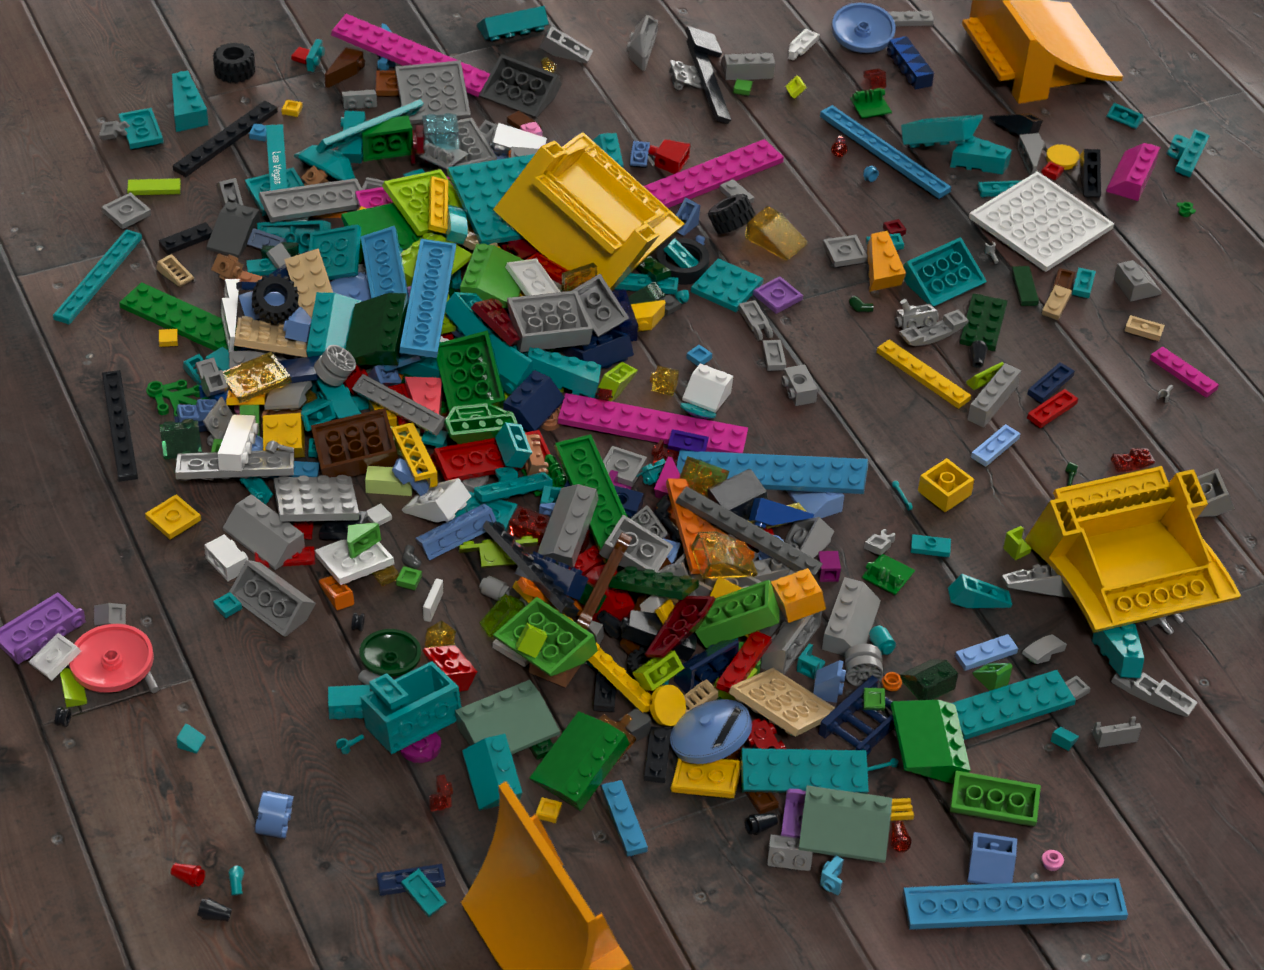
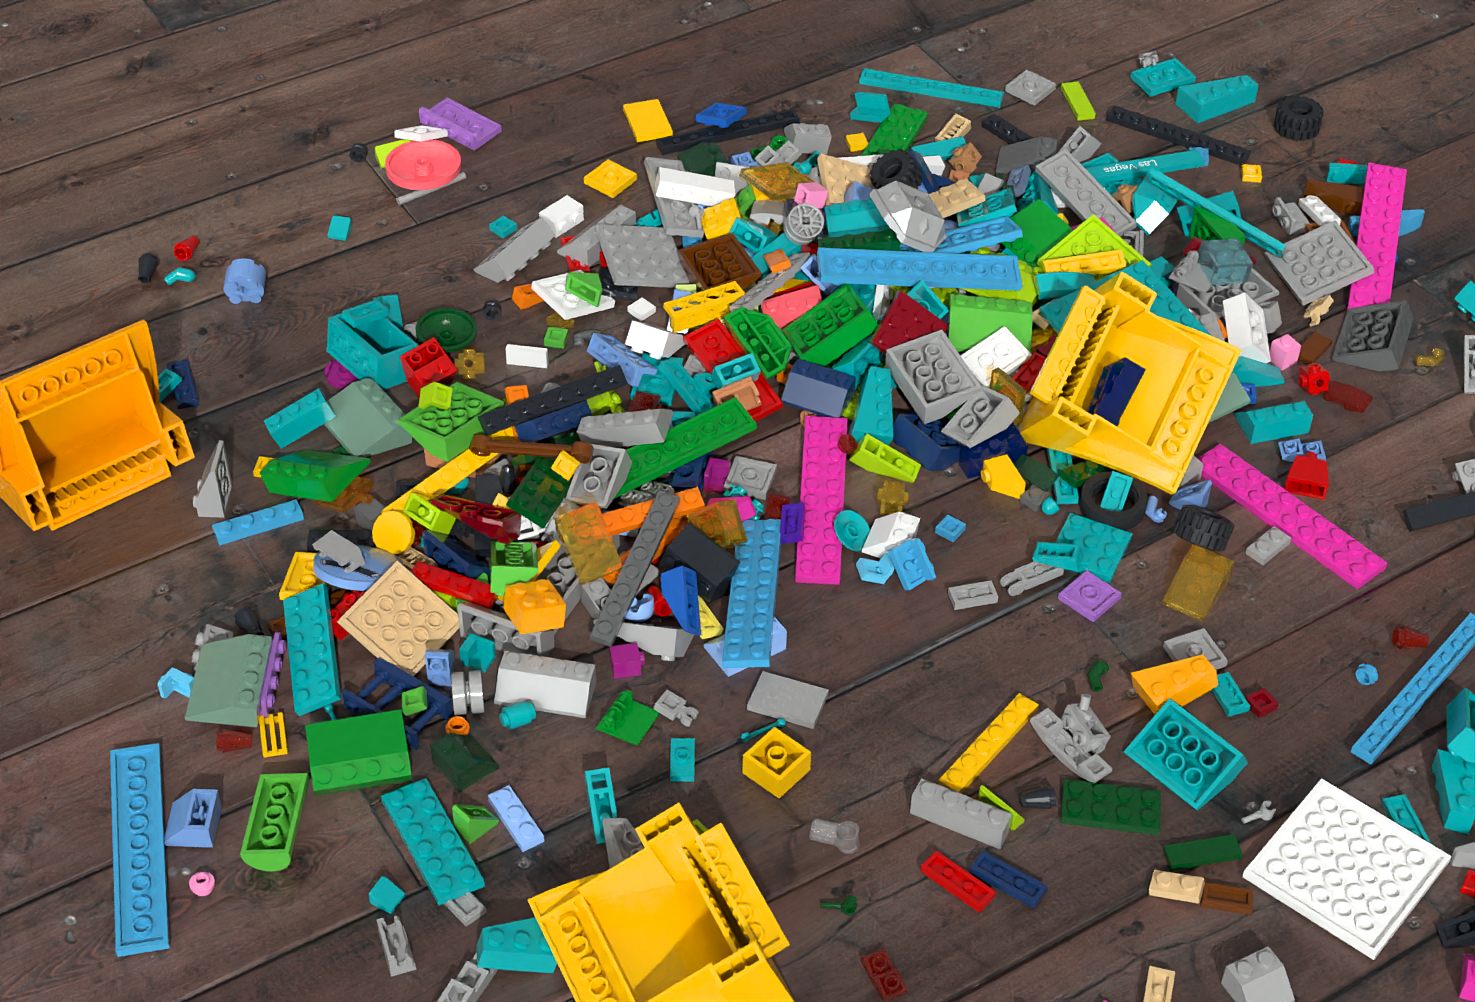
camera: 85 degrees right, 0 degrees up
(80, 481) = (647, 120): none -> yellow tile
(100, 421) = (721, 114): none -> blue plate
(109, 614) = (479, 159): light grey panel -> none
(128, 316) = (870, 107): none -> teal panel
(157, 364) = (809, 137): none -> light grey slope
(203, 284) = (943, 148): none -> teal tile
(239, 358) = (804, 167): none -> teal arm
(287, 357) = (812, 194): none -> bright pink brick
(362, 80) = (1318, 210): none -> white plate
(367, 397) = (777, 261): none -> orange tile
(371, 277) = (910, 215): none -> light grey piece
(443, 798) = (279, 389): clear red bracket -> none
(479, 108) = (1318, 308): none -> tan plate
(567, 127) = (1313, 378): none -> red brick
(586, 116) = (1351, 397): none -> clear red slope
(587, 835) = (215, 485): none -> light grey slope
(610, 210) = (1115, 389): none -> clear blue wedge
(630, 560) = (565, 465): none -> yellow tile
(716, 725) = (340, 550): none -> light grey hinge
(741, 403) = (875, 571): none -> medium azure bracket
(744, 375) = (911, 563): none -> dark azure bracket
(750, 287) = (1070, 561): none -> teal slope
(799, 385) = (924, 620): light grey brick -> none
(879, 476) = (788, 699): none -> light grey tile
(995, 445) = (871, 819): light blue plate -> none
(1010, 464) = (842, 835): none -> clear piece
(1042, 649) = (522, 870): light grey slope -> none
(1083, 282) = (1230, 919): teal plate -> none

